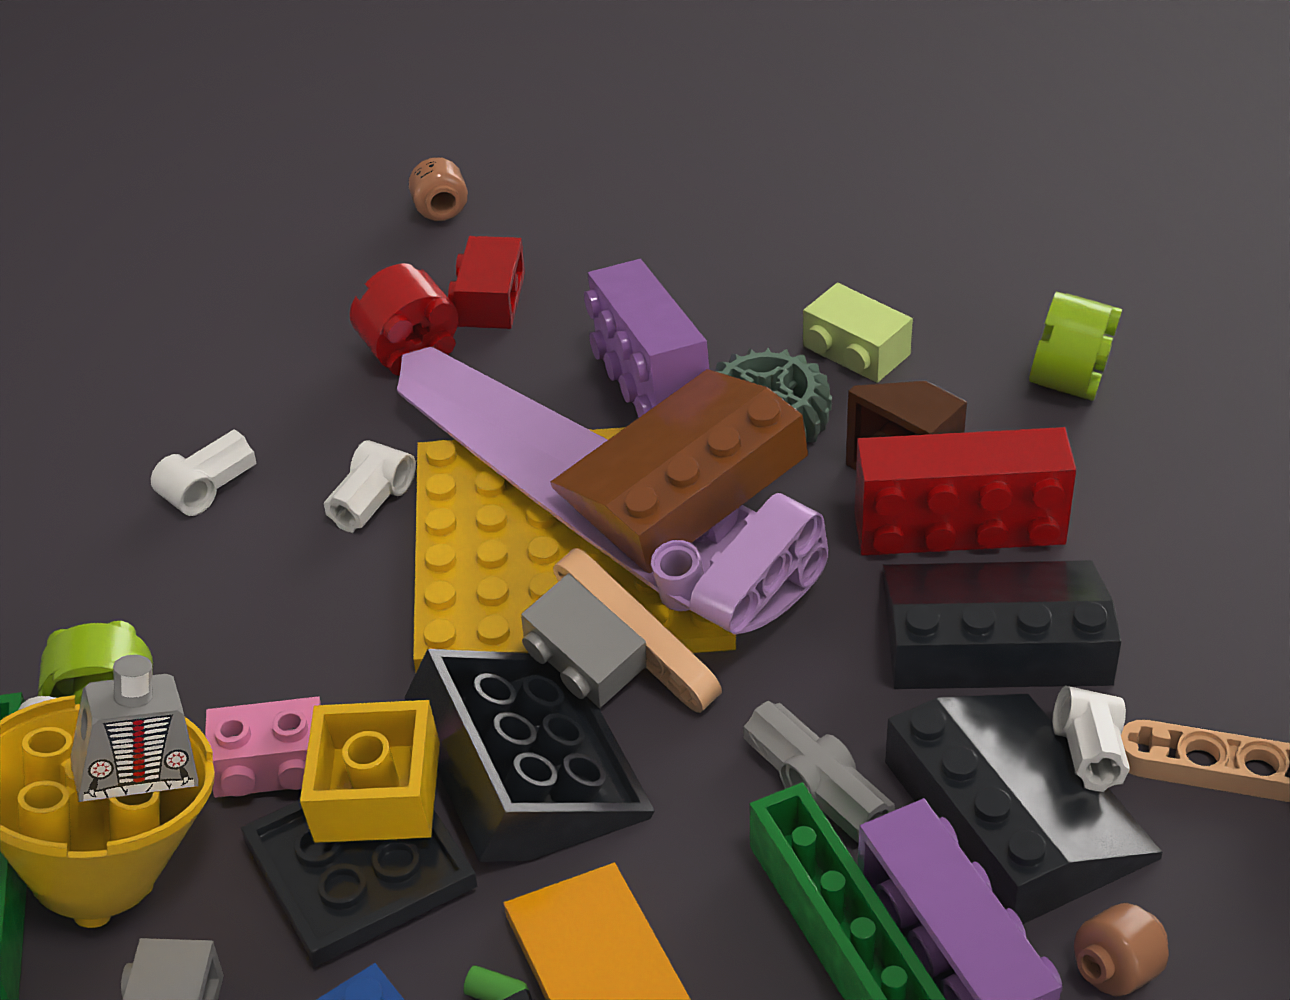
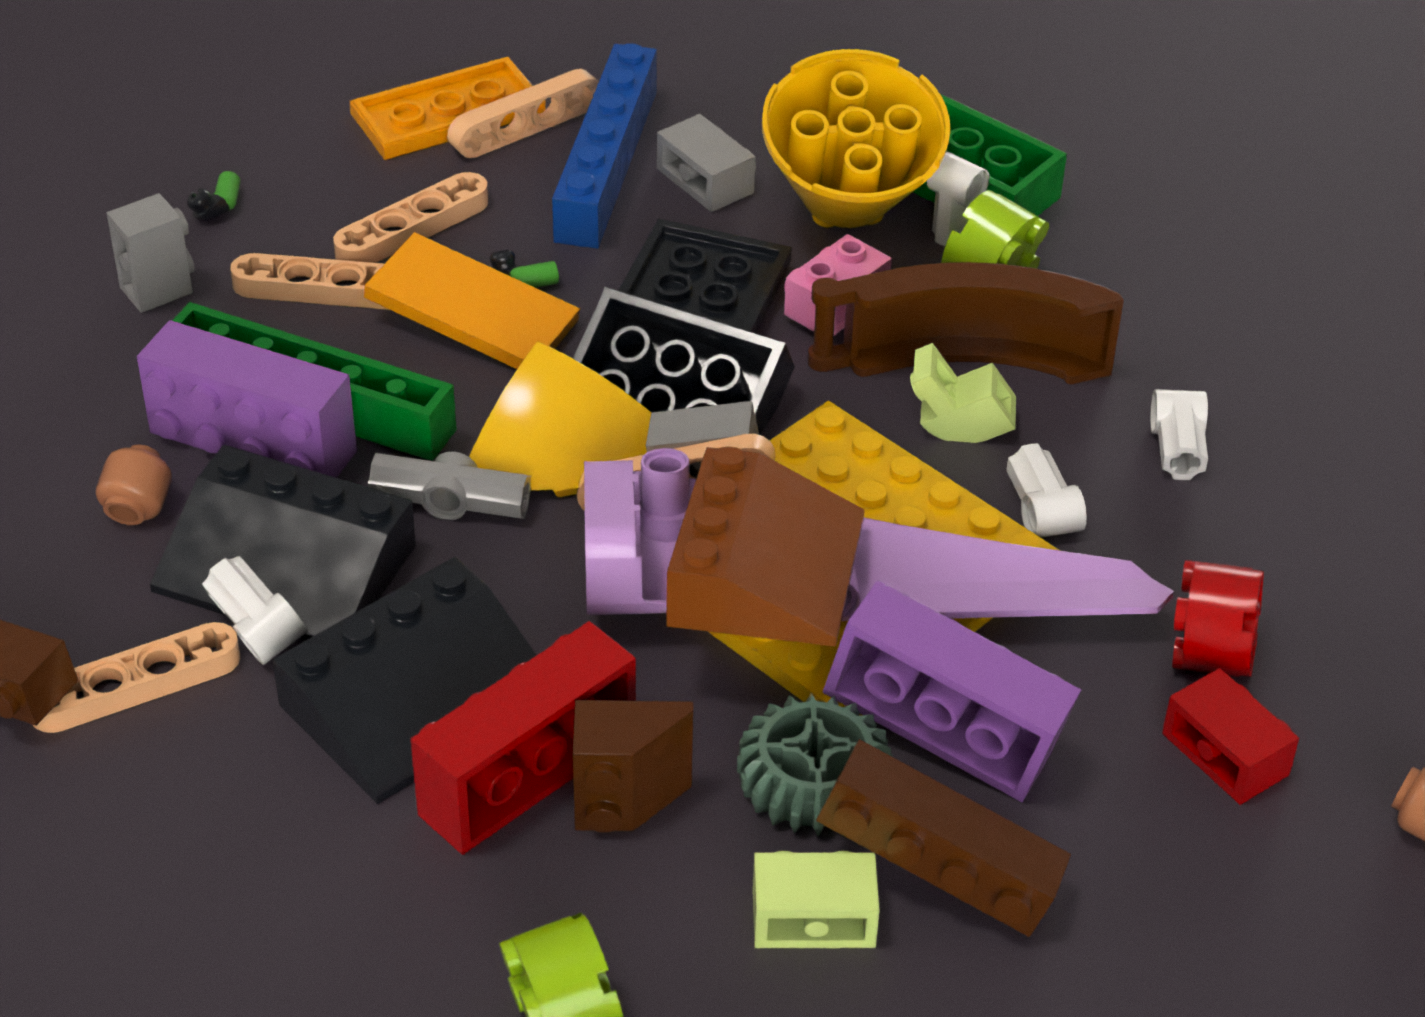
camera: 135 degrees right, 0 degrees up
(131, 735) = (834, 98): torso -> none
(236, 636) = (970, 316): none -> reddish brown windscreen
(323, 577) = (965, 406): none -> yellowish green brick
(371, 771) = (727, 270): yellow brick -> none
(676, 757) = (556, 419): none -> yellow brick
(758, 290) = (945, 838): none -> reddish brown brick

